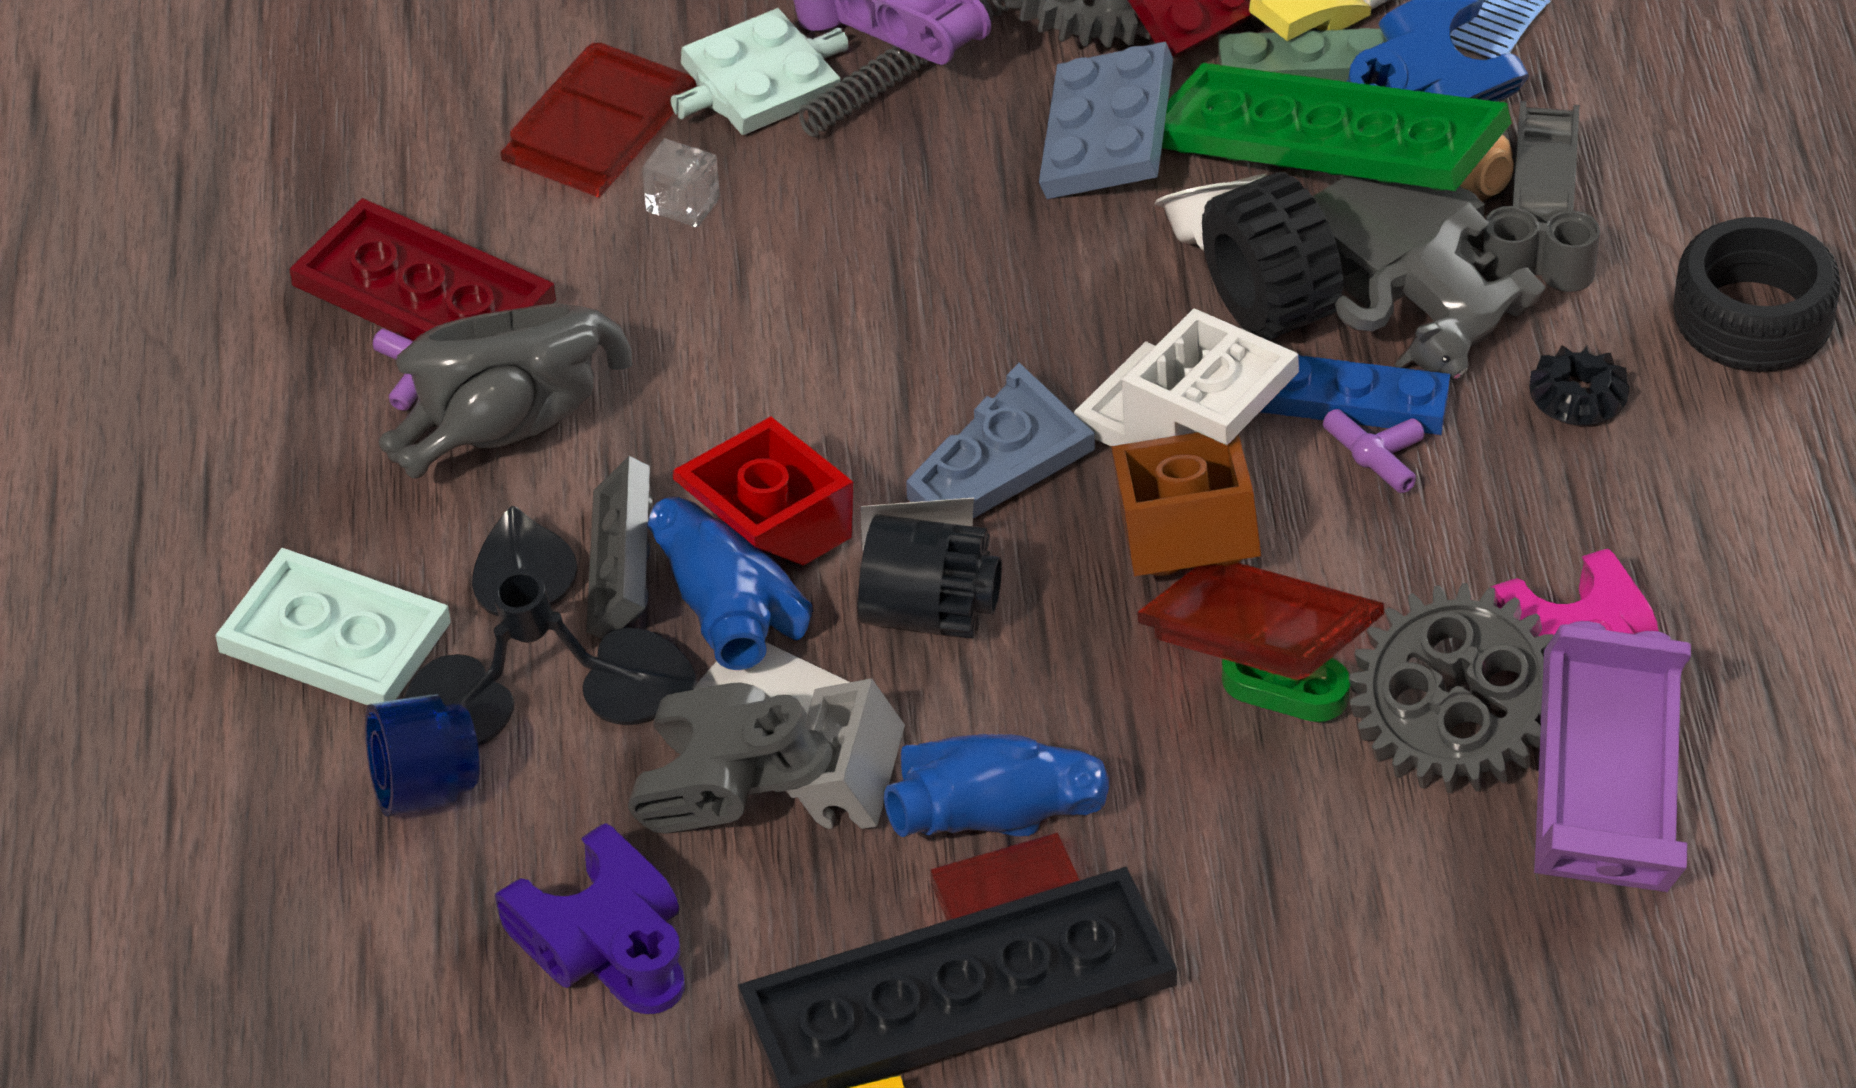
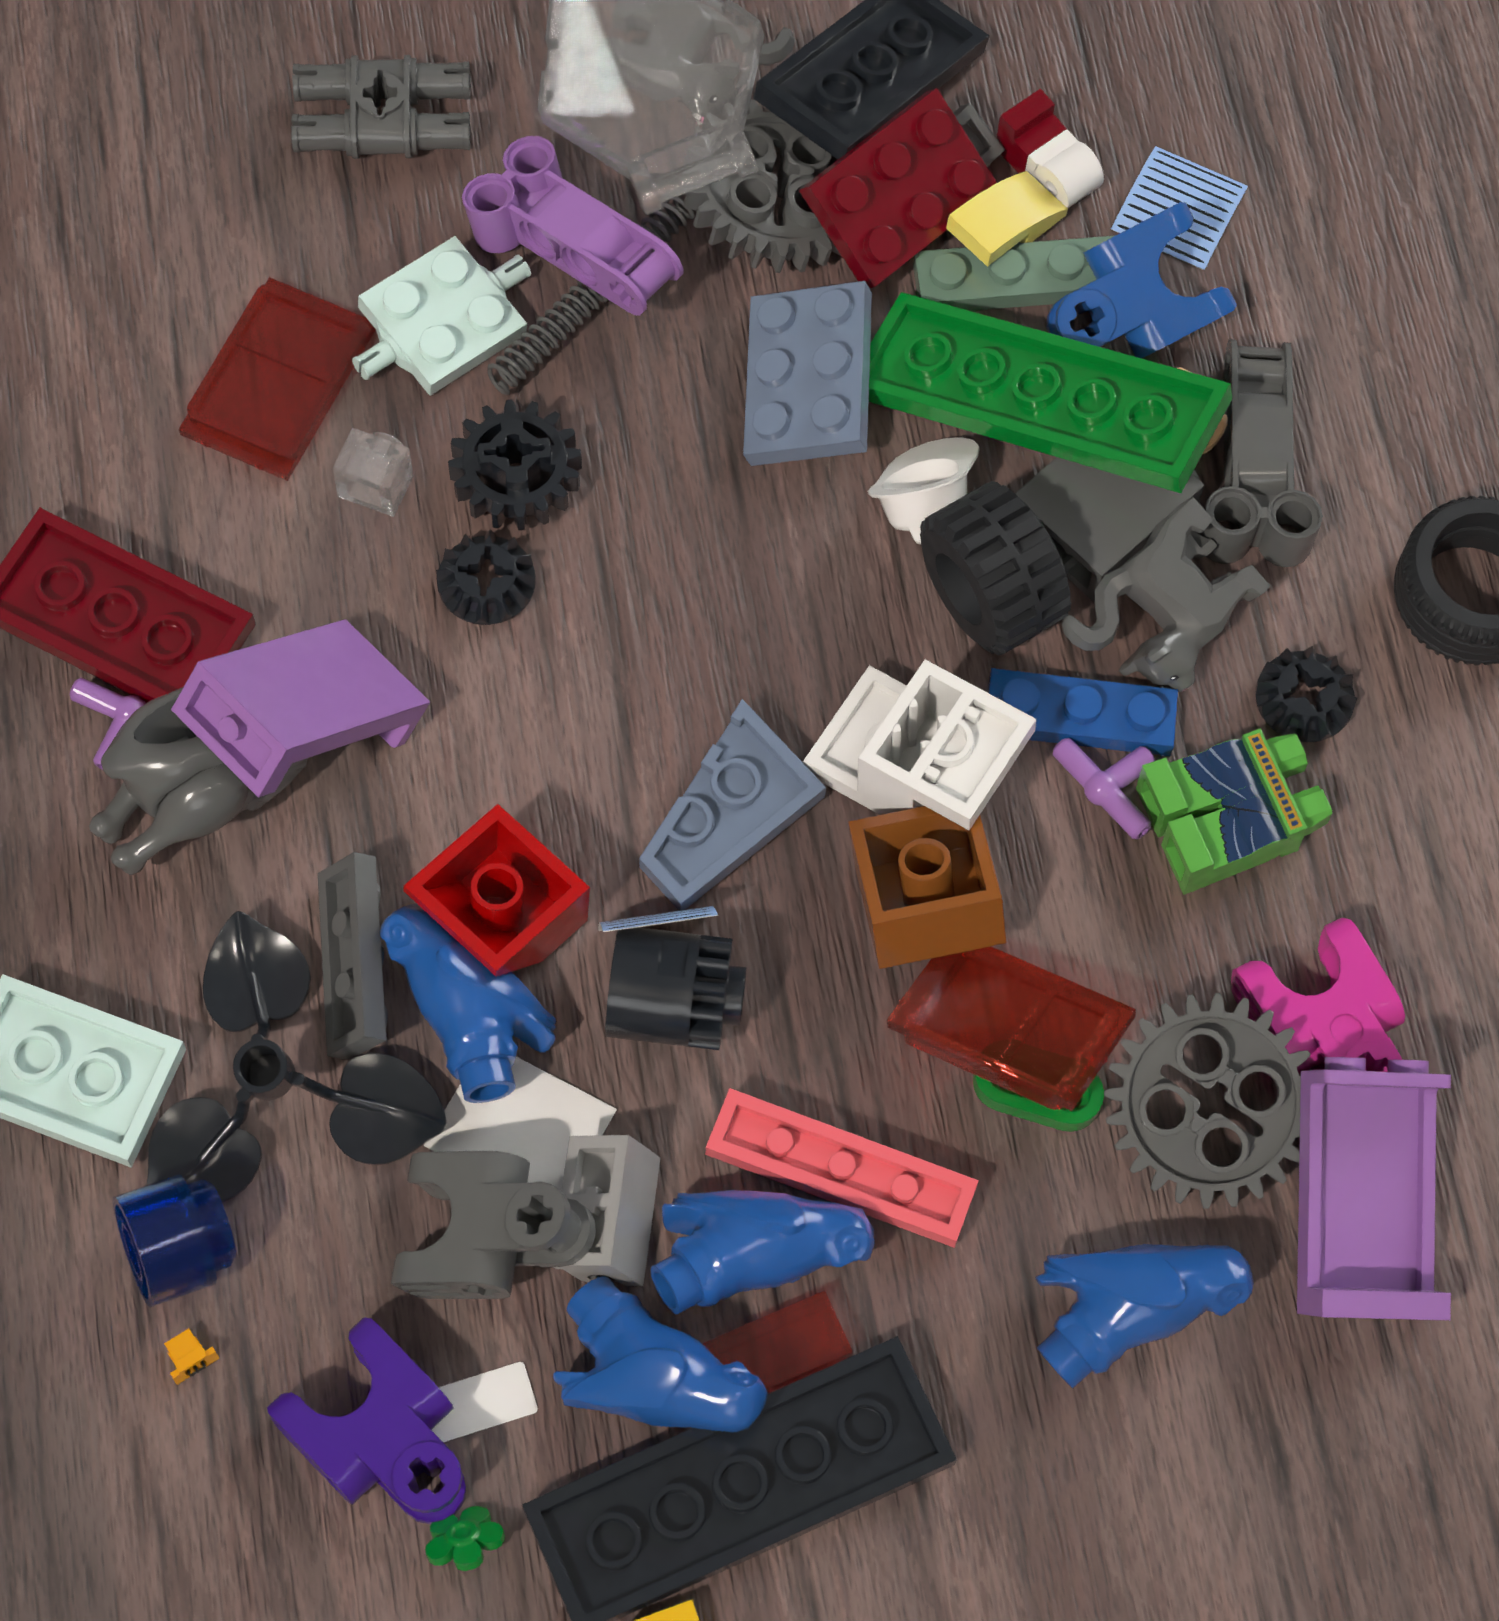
camera: 10 degrees left, 20 degrees up
(424, 864) = (188, 1356): none -> light orange piece
(552, 311) = (296, 701): none -> medium lavender panel
(678, 1017) = (464, 1538): none -> green plant
(717, 916) = (486, 1401): none -> white sticker
(799, 282) = (506, 594): none -> black gear
(817, 181) = (543, 478): none -> black gear
(877, 878) = (653, 1369): none -> blue animal
(1132, 749) = (841, 1167): none -> coral plate
(1365, 845) = (1136, 1299): none -> blue animal
(1496, 465) = (1230, 807): none -> bright green hips

